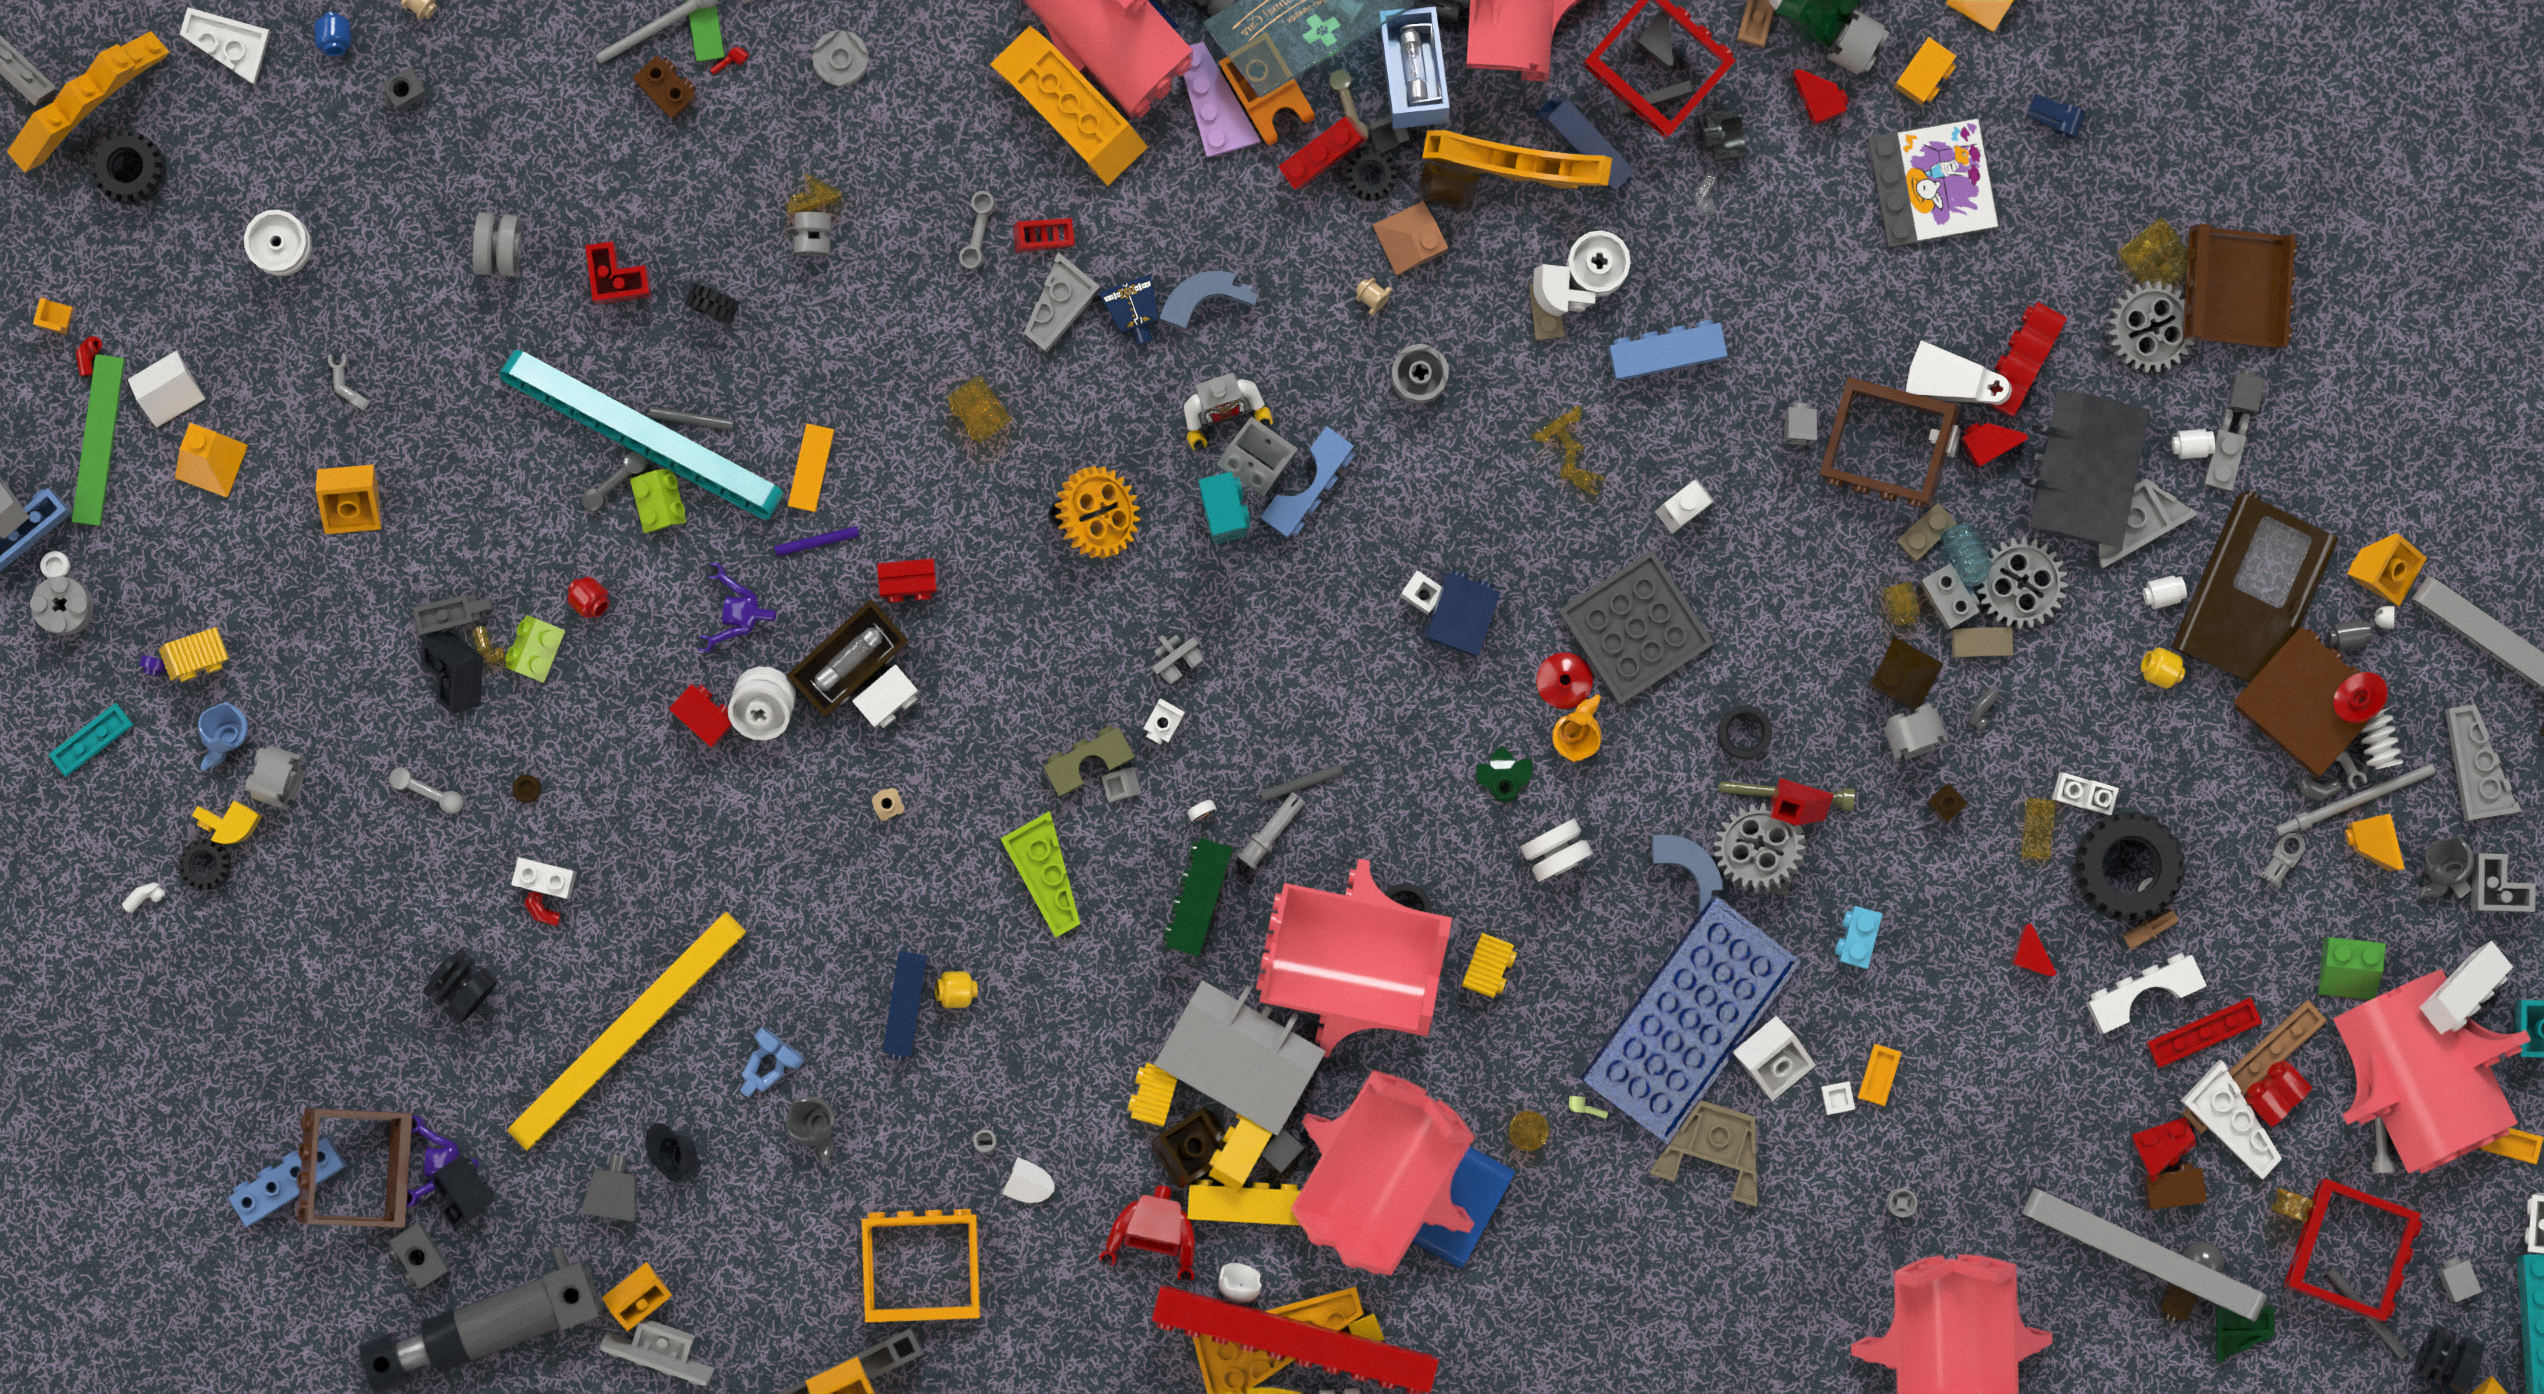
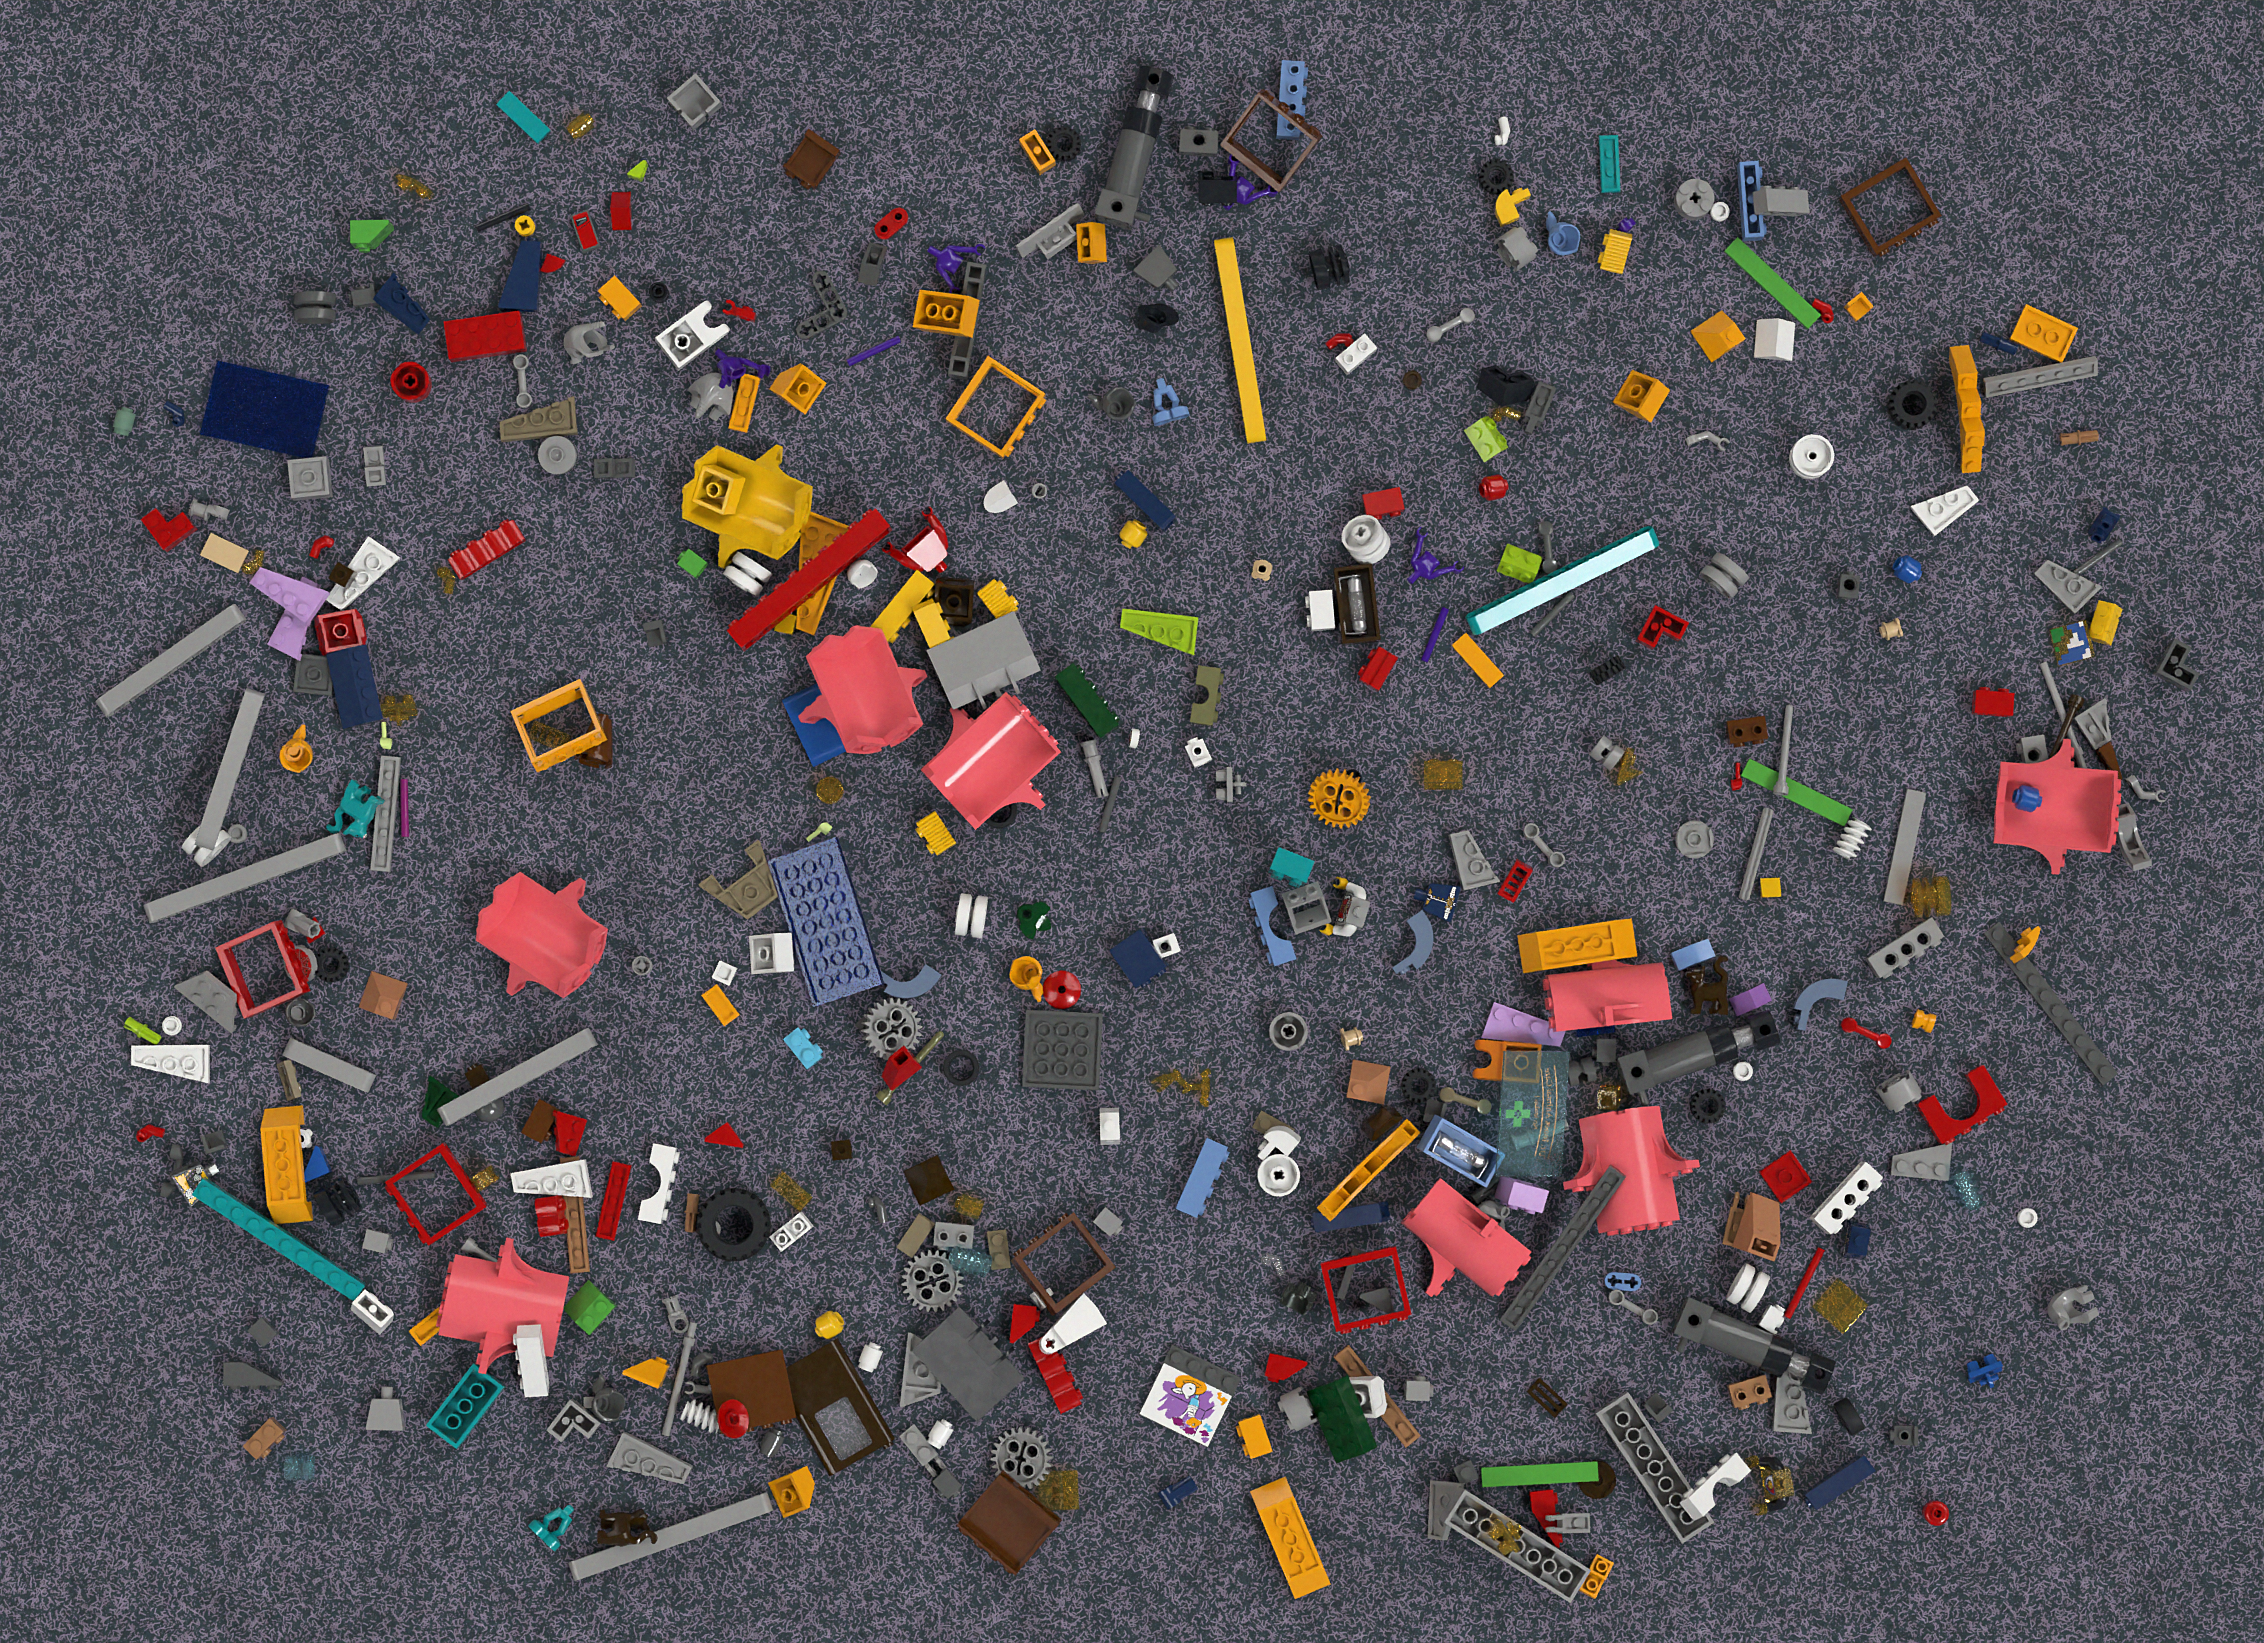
camera: 130 degrees right, 0 degrees up
(1121, 784) = (1180, 705): light grey slope -> none
(1282, 1150) = (916, 648): dark grey panel -> none
(1322, 152) = (1449, 1066): red brick -> none
(1915, 733) = (892, 1160): light grey brick -> none
(2385, 617) = (767, 1470): white hinge -> none

